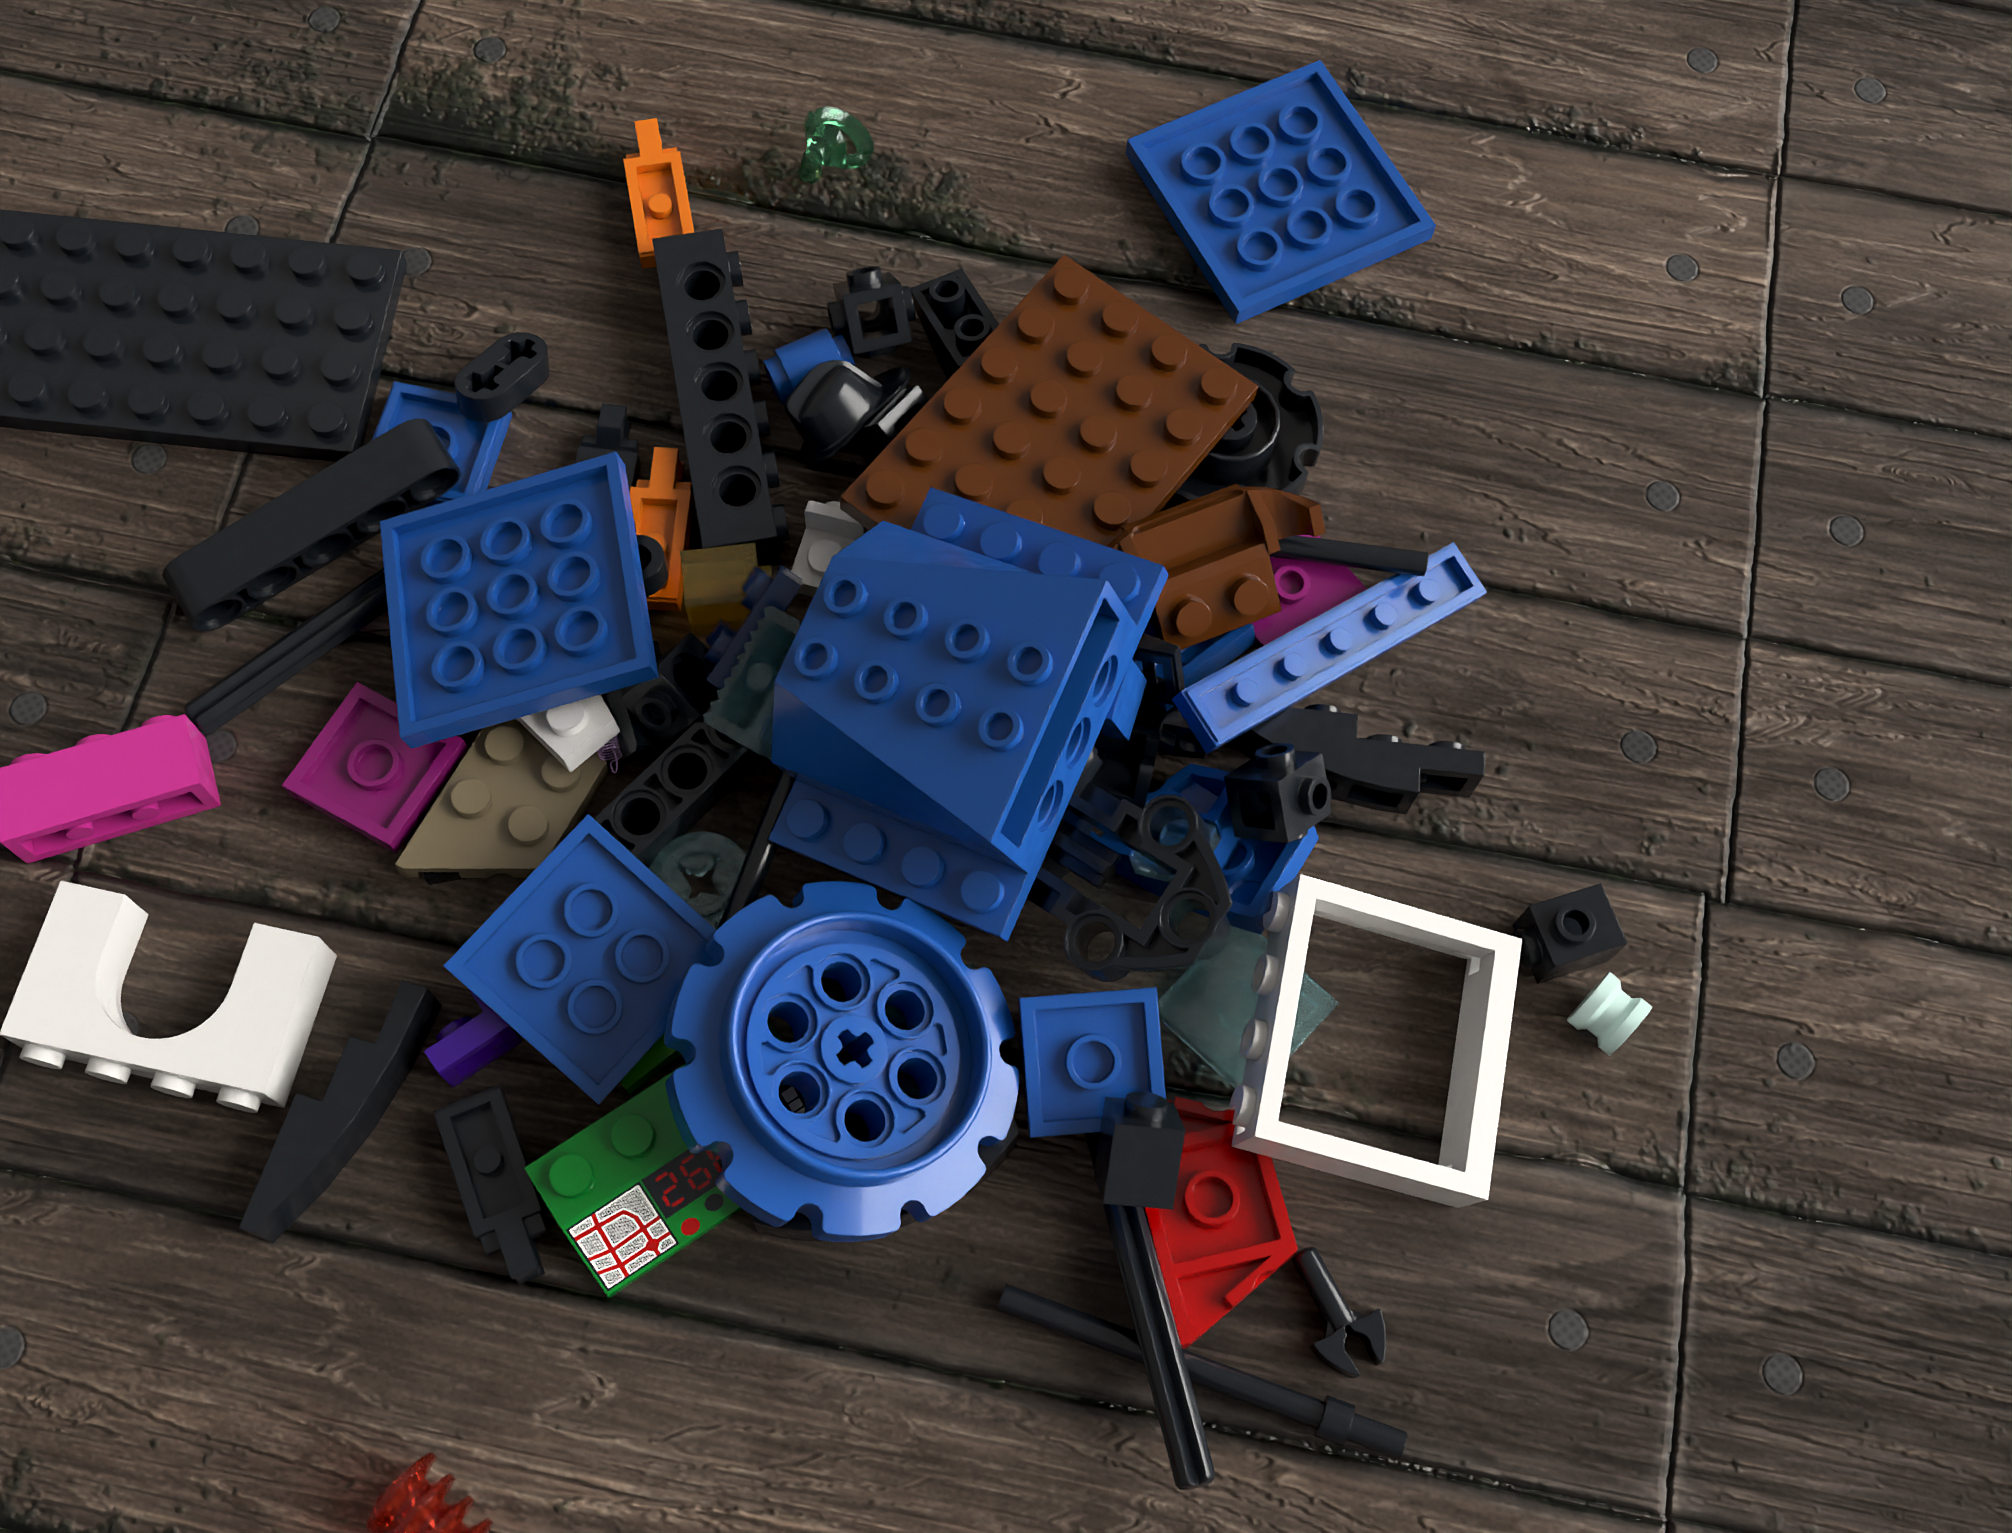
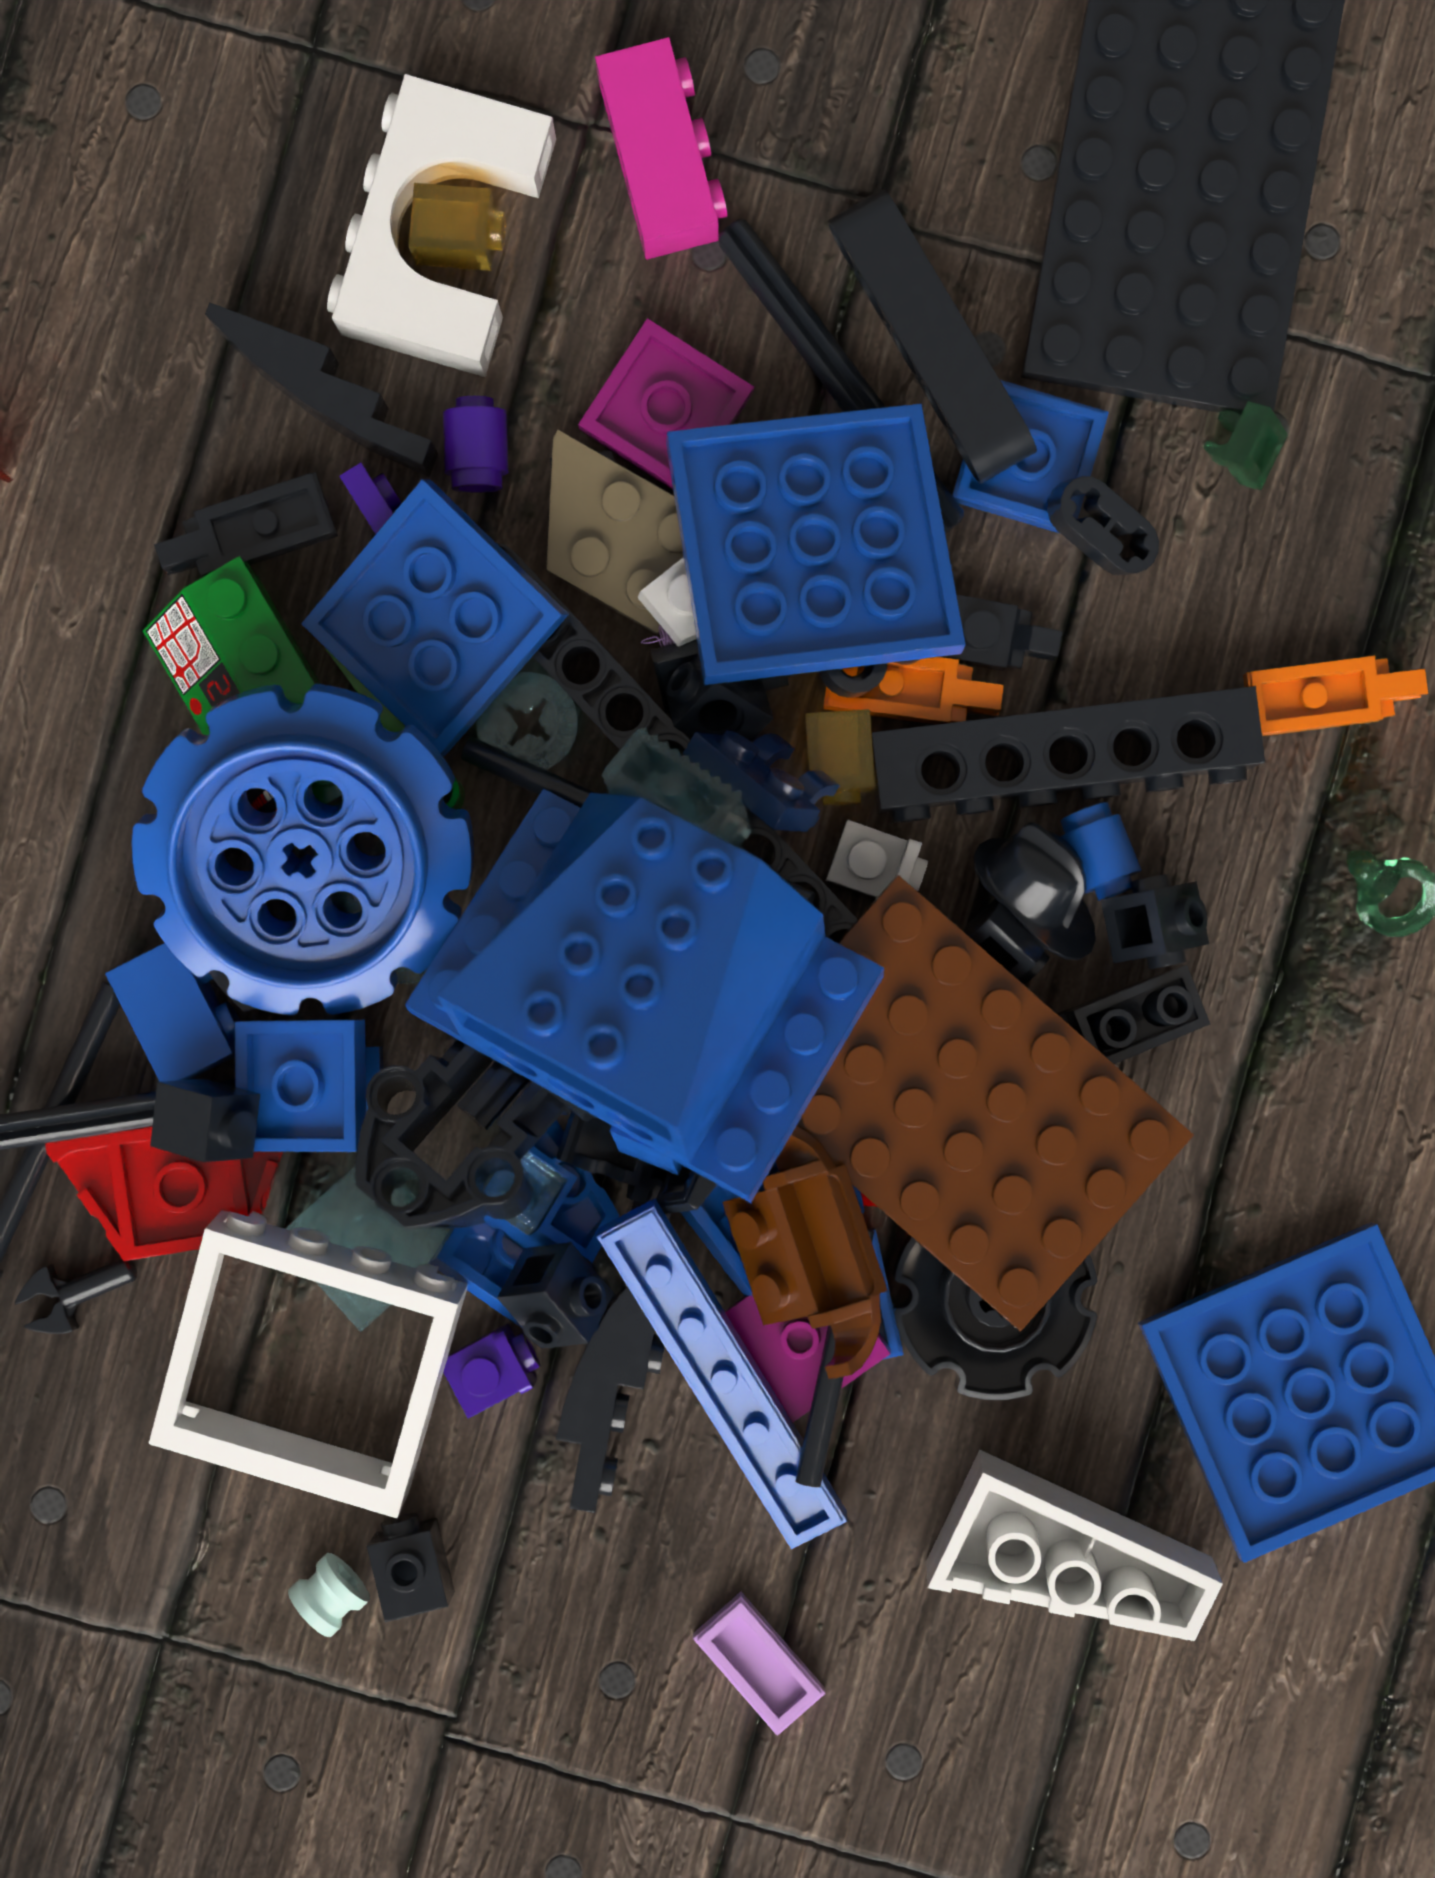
camera: 100 degrees right, 20 degrees up
(171, 982) = (455, 226): none -> clear yellow brick
(406, 947) = (475, 444): none -> dark purple brick
(427, 264) = (1252, 446): none -> clear green tile
(1024, 1215) = (174, 1014): none -> blue brick
(1355, 862) = (491, 1369): none -> dark purple bracket
(1449, 374) = (1062, 1552): none -> white wedge
(1597, 618) = (759, 1663): none -> lavender tile

